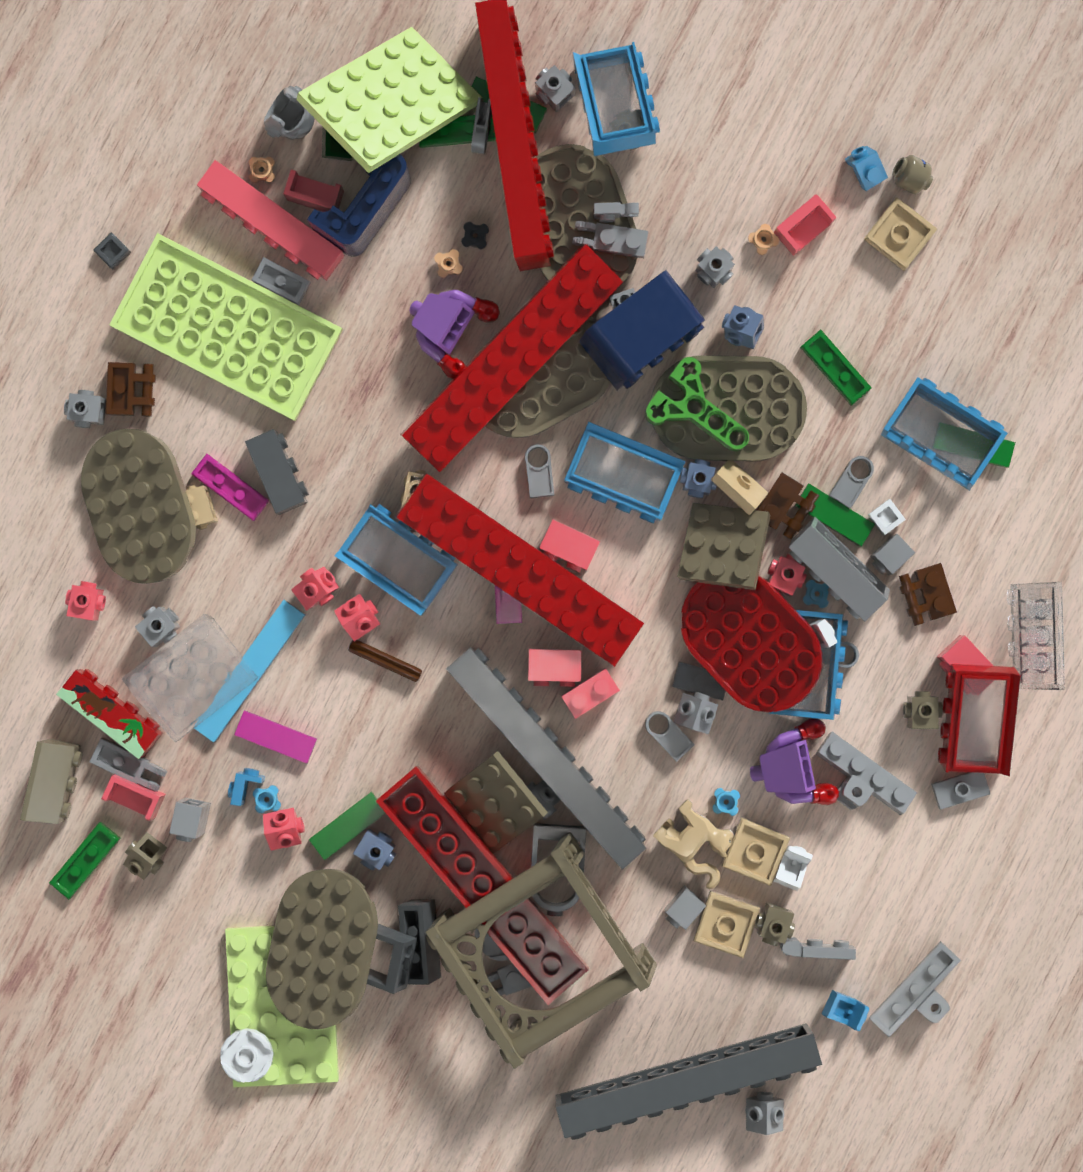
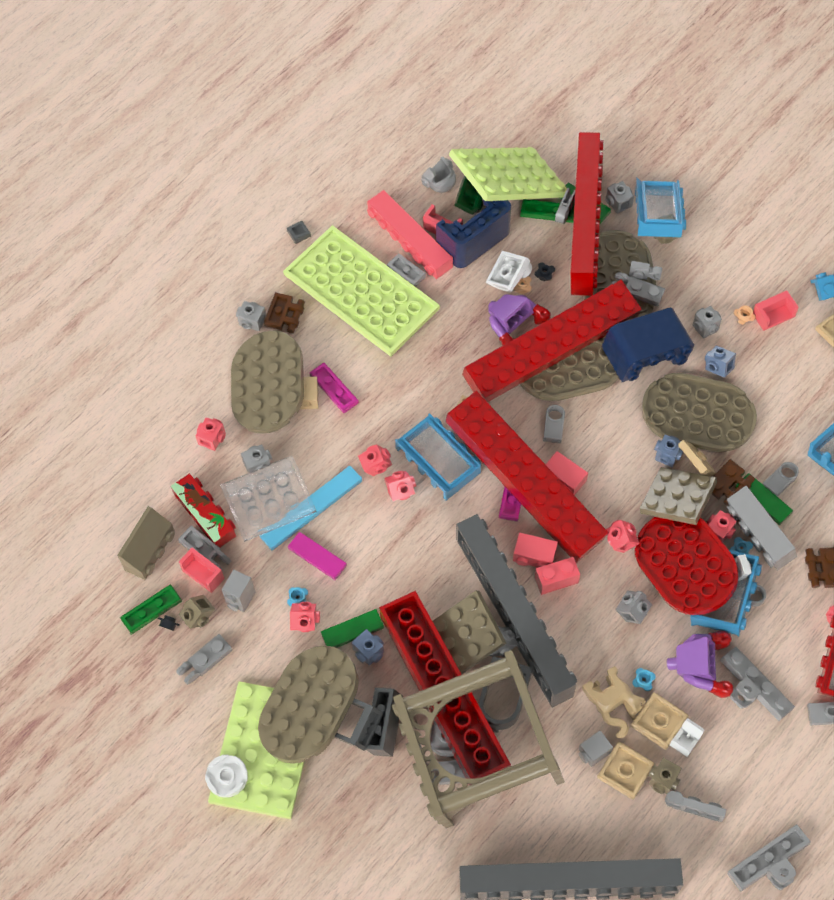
camera: 10 degrees right, 25 degrees down
(113, 876) = (168, 622): none -> black plate
(175, 907) = (205, 658): none -> light grey hinge
(238, 789) = (280, 582): dark azure bracket -> none
(257, 163) = (412, 201): light nougat plate -> none
(277, 471) = (370, 382): dark grey brick -> none
(385, 660) = (411, 522): reddish brown axle -> none
(425, 252) = (508, 271): none -> white slope
(624, 472) = (615, 435): window -> none
(661, 618) = (622, 536): none -> coral brick
(673, 739) = (612, 625): light grey piece -> none
(693, 391) = (654, 398): bright green beam -> none
(697, 679) = (636, 583): black plate -> none
(835, 367) = (781, 404): green tile -> none
(845, 1010) = (709, 860): dark azure bracket -> none
(886, 517) = (802, 507): white plate -> none
(891, 555) = (803, 532): light grey brick -> none
(930, 717) = (809, 645): dark tan brick -> none

